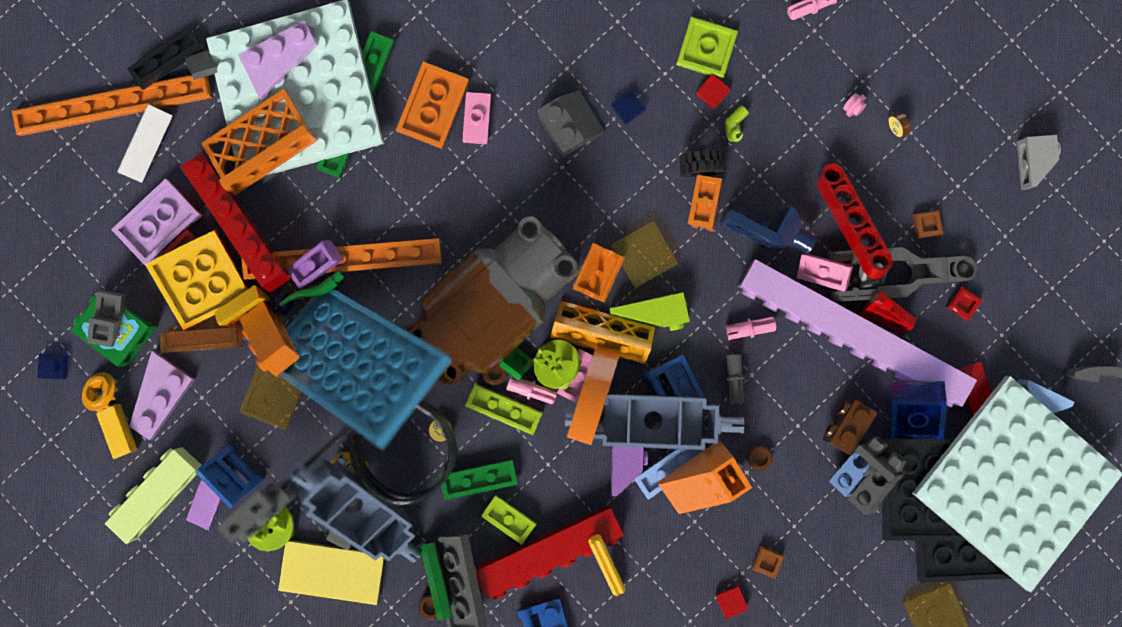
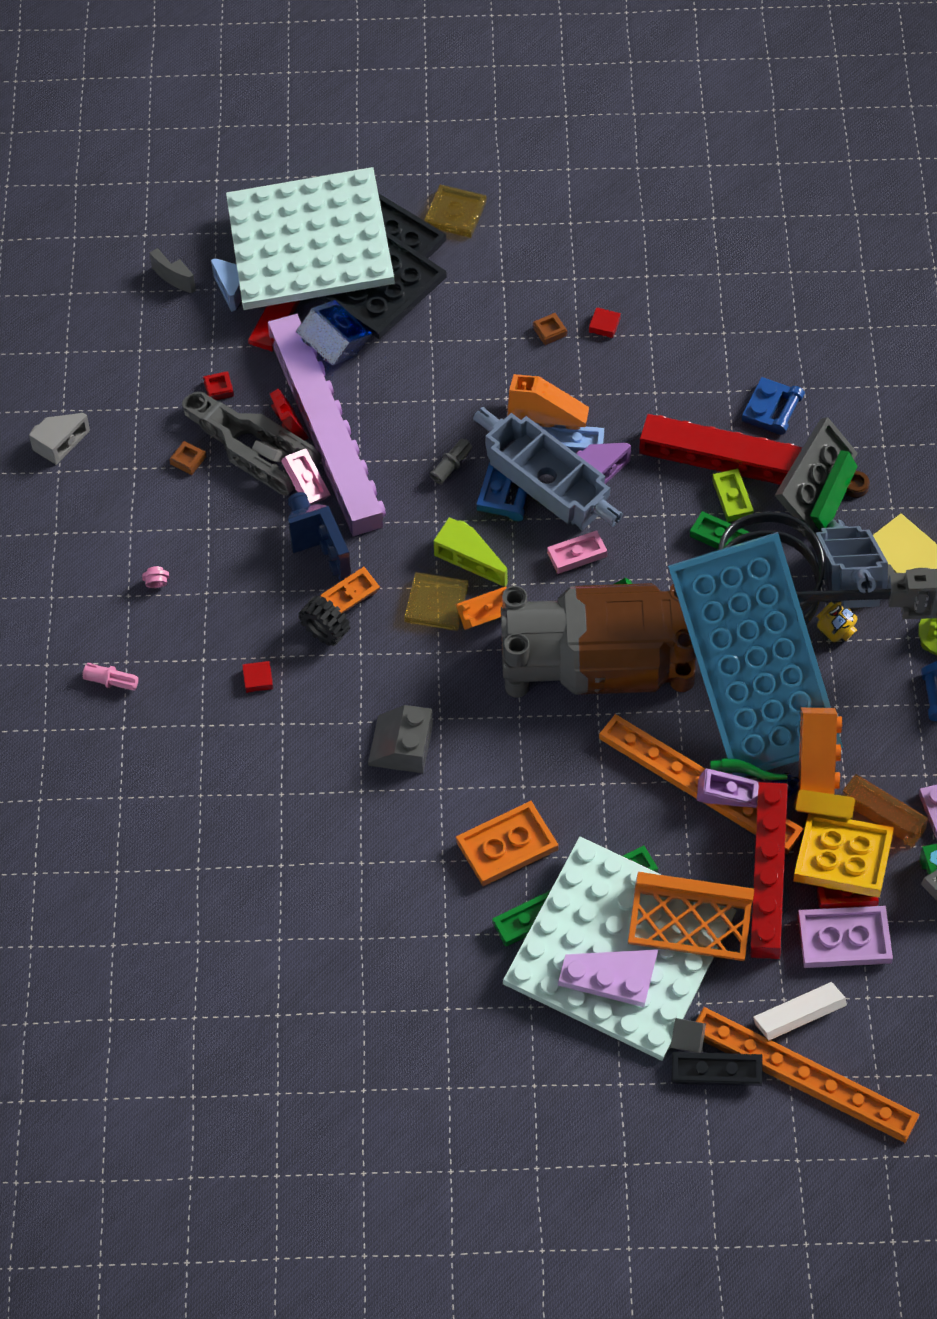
camera: 140 degrees left, 30 degrees down
(270, 399) = (864, 727): clear yellow tile -> none
(476, 118) = (478, 806): bright pink plate -> none
(504, 409) = (654, 564): lime tile -> none
(532, 390) = (623, 565): bright pink axle -> none
(565, 368) = (583, 557): lime plate -> none
(583, 334) = (526, 557): light orange fence -> none
(593, 395) = (574, 514): orange slope -> none
(606, 564) = (680, 405): yellow axle -> none
(628, 107) = (340, 718): clear blue plate -> none
(706, 47) = (228, 713): lime tile -> none
(732, 124) = (267, 640): lime arm -> none
(750, 328) = (403, 486): bright pink axle -> none
(759, 457) = (486, 397): reddish brown tile -> none
(849, 426) = (395, 365): reddish brown brick -> none
(854, 232) = (248, 501): red beam -> none
(869, 475) = (415, 317): dark grey hips -> none
(899, 124) = (136, 537): tile -> none

